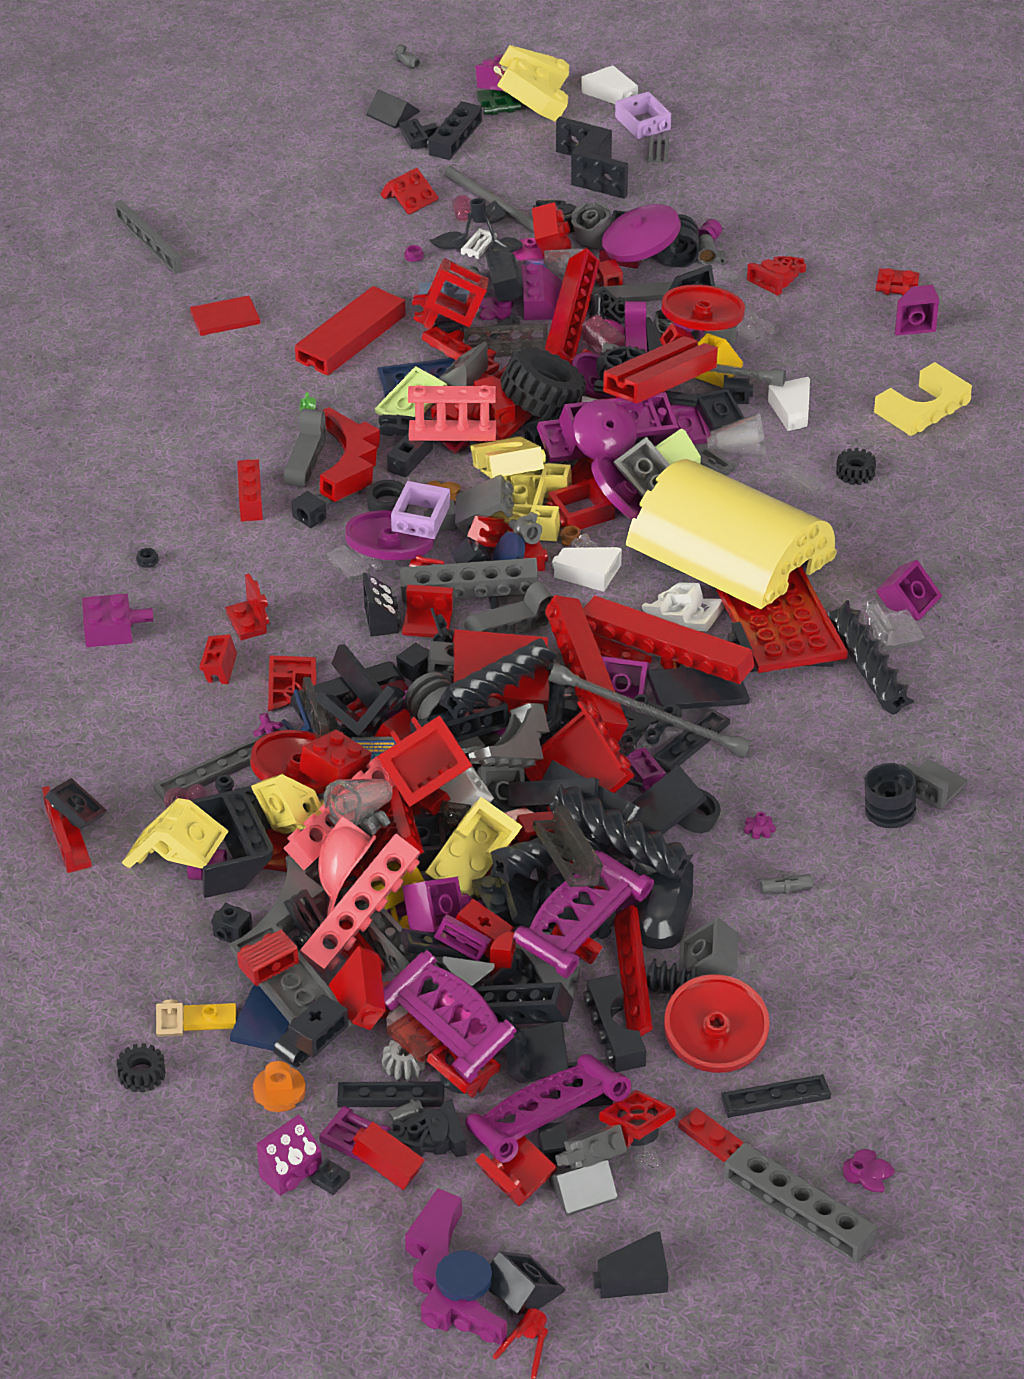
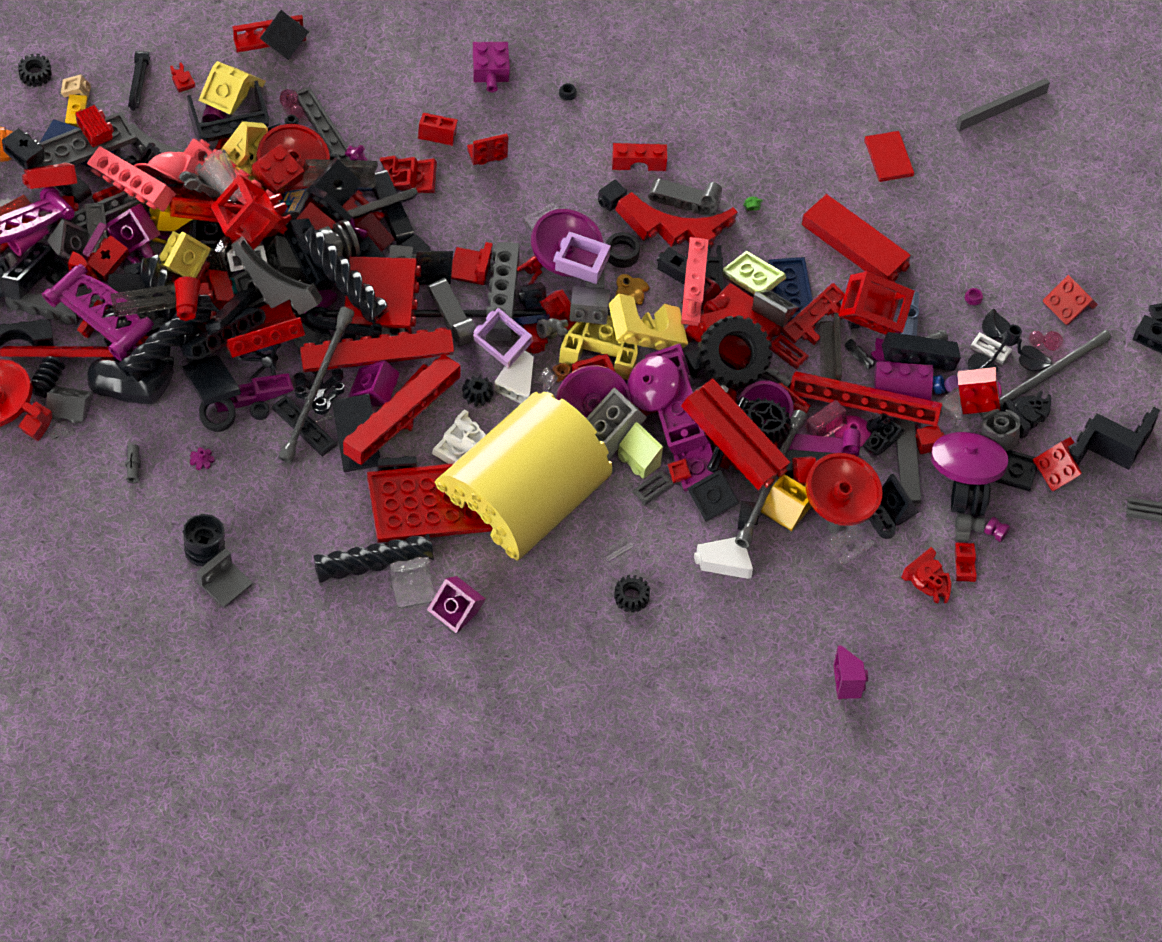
camera: 90 degrees right, 15 degrees up
(114, 955) = (141, 60): none -> black piece
(146, 912) = (181, 79): none -> red plate
(231, 923) = (153, 122): black brick -> none
(380, 607) = (479, 227): black slope -> none
(557, 540) = (516, 350): none -> lavender window
(578, 793) = (187, 294): none -> red plant
(615, 591) = (478, 390): none -> black gear
(624, 188) = (1058, 465): none -> red bracket
(695, 434) = (679, 470): none -> red tile
(740, 437) = (673, 509): clear cone -> none
(744, 254) = (965, 562): none -> red slope
(750, 971) = (36, 420): none -> red brick
(896, 281) = (920, 678): red plate -> none
(916, 416) = (727, 686): light yellow arch -> none

